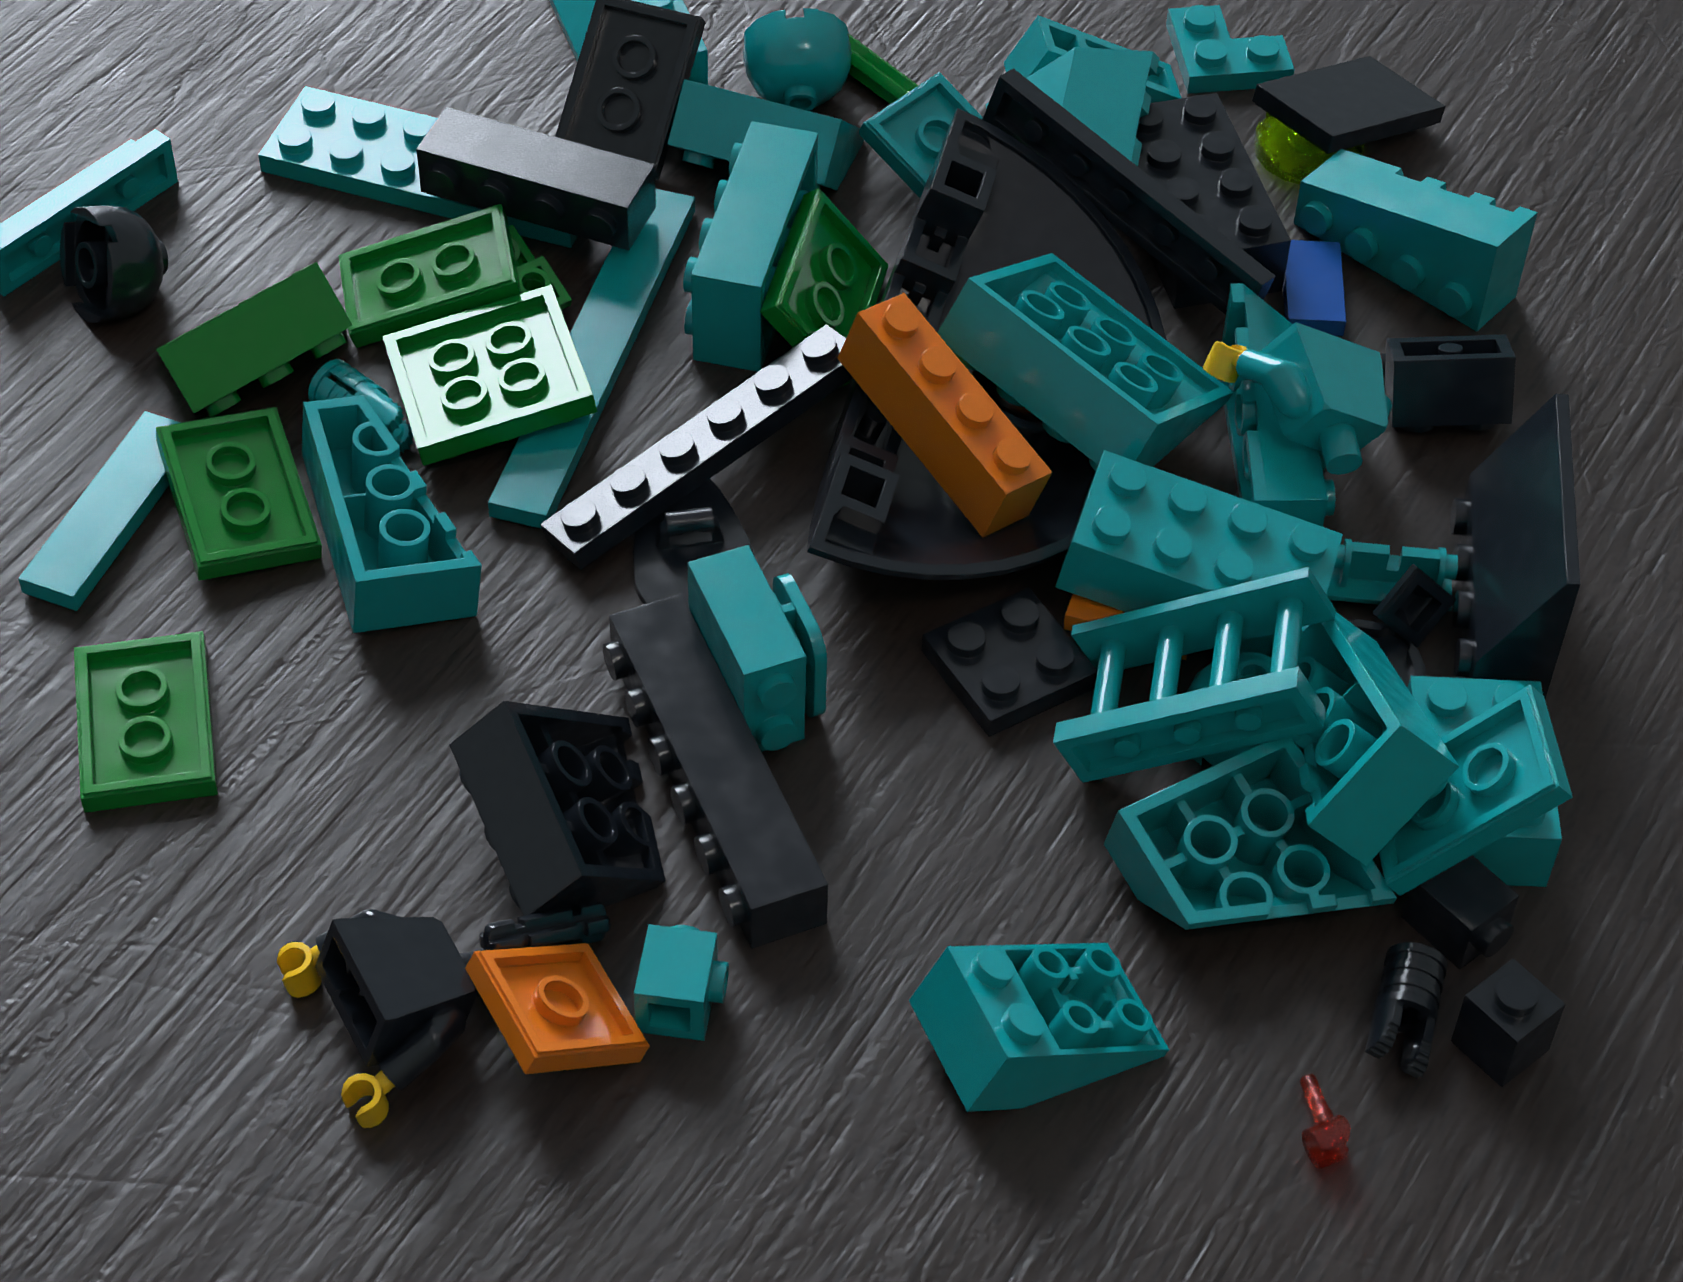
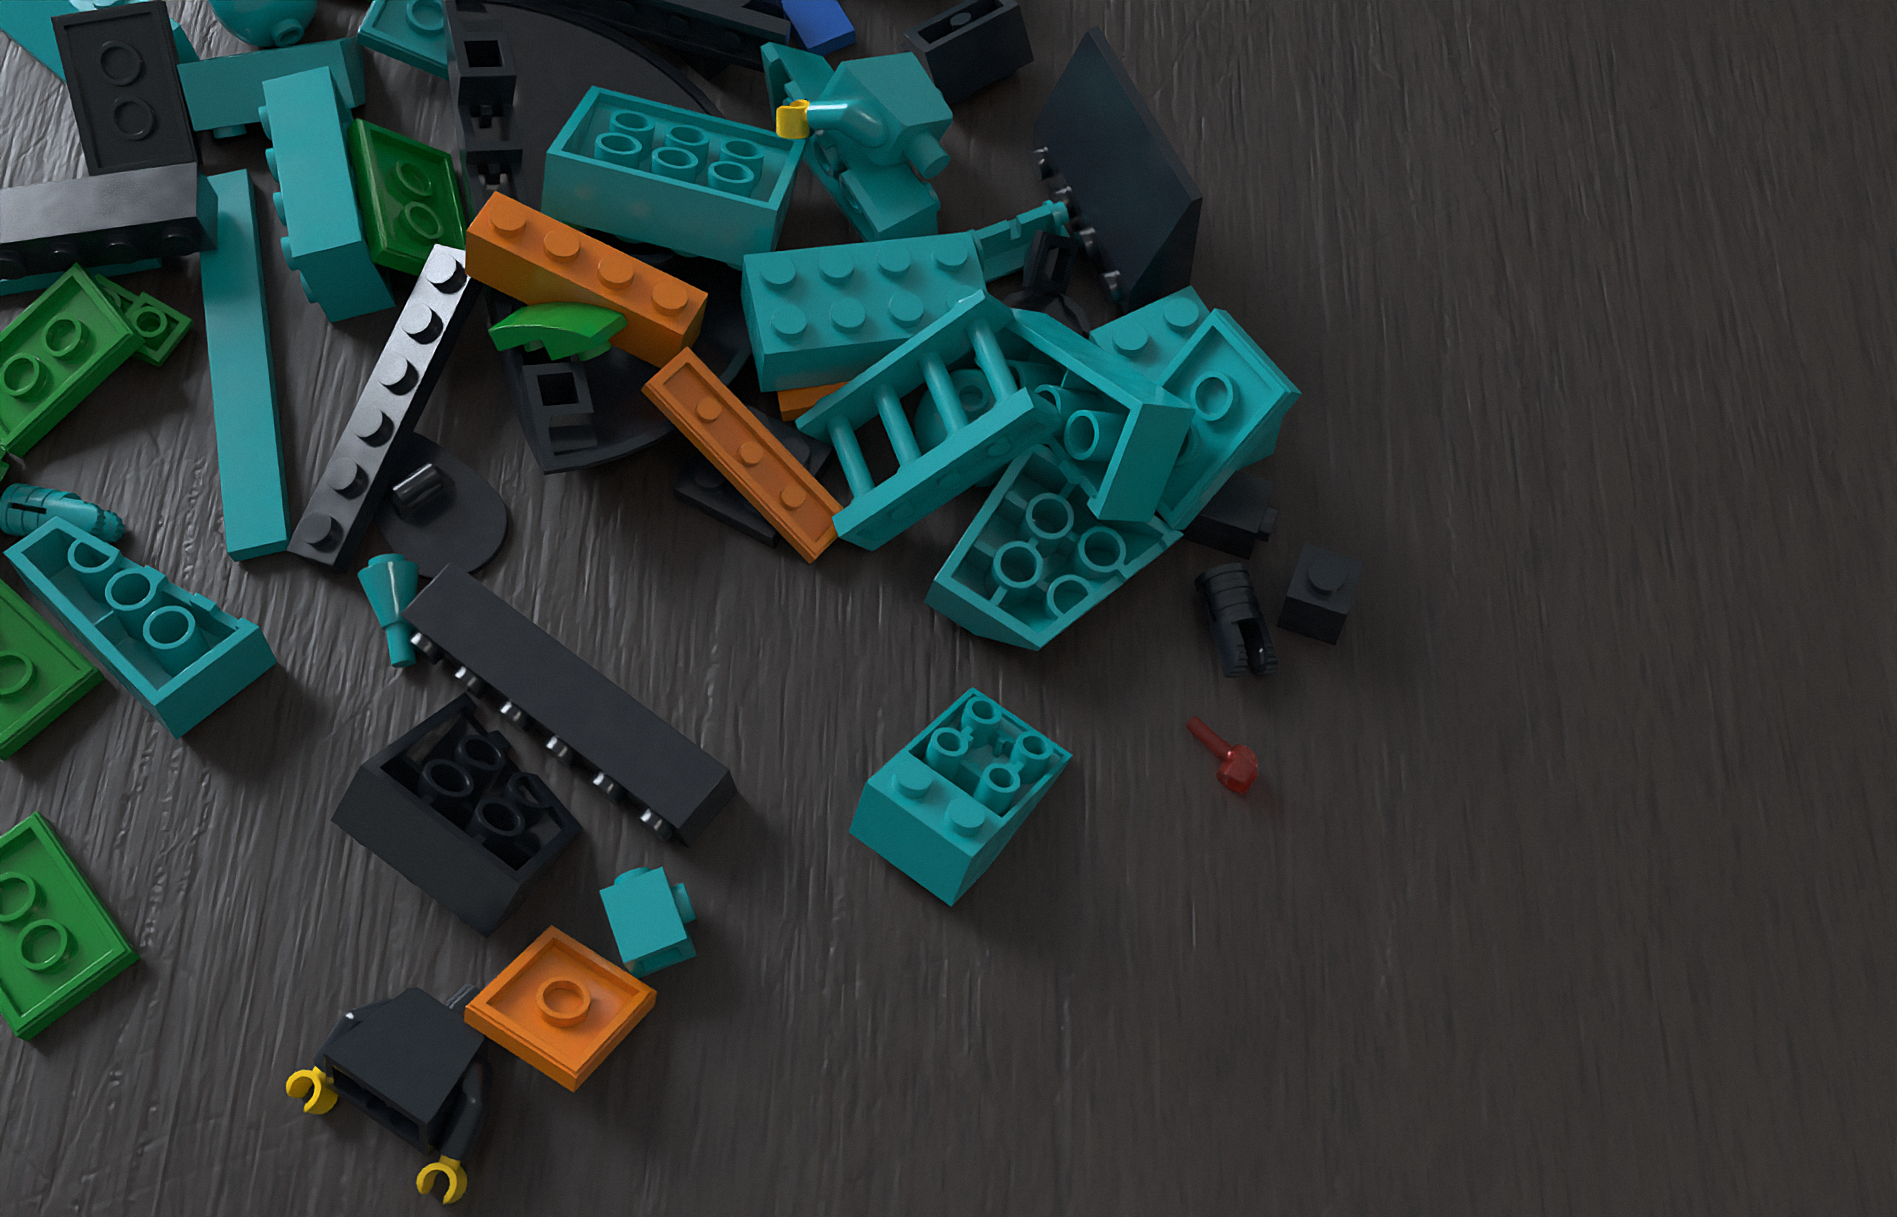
camera: 25 degrees left, 15 degrees up
(489, 375) = (157, 432): plate -> none
(549, 928) = (510, 938): black axle -> none
(611, 590) = (391, 587): none -> teal cone
(761, 643) = (546, 575): teal brick -> none
(896, 440) = (561, 328): none -> green slope
(1007, 628) = (745, 453): none -> orange tile

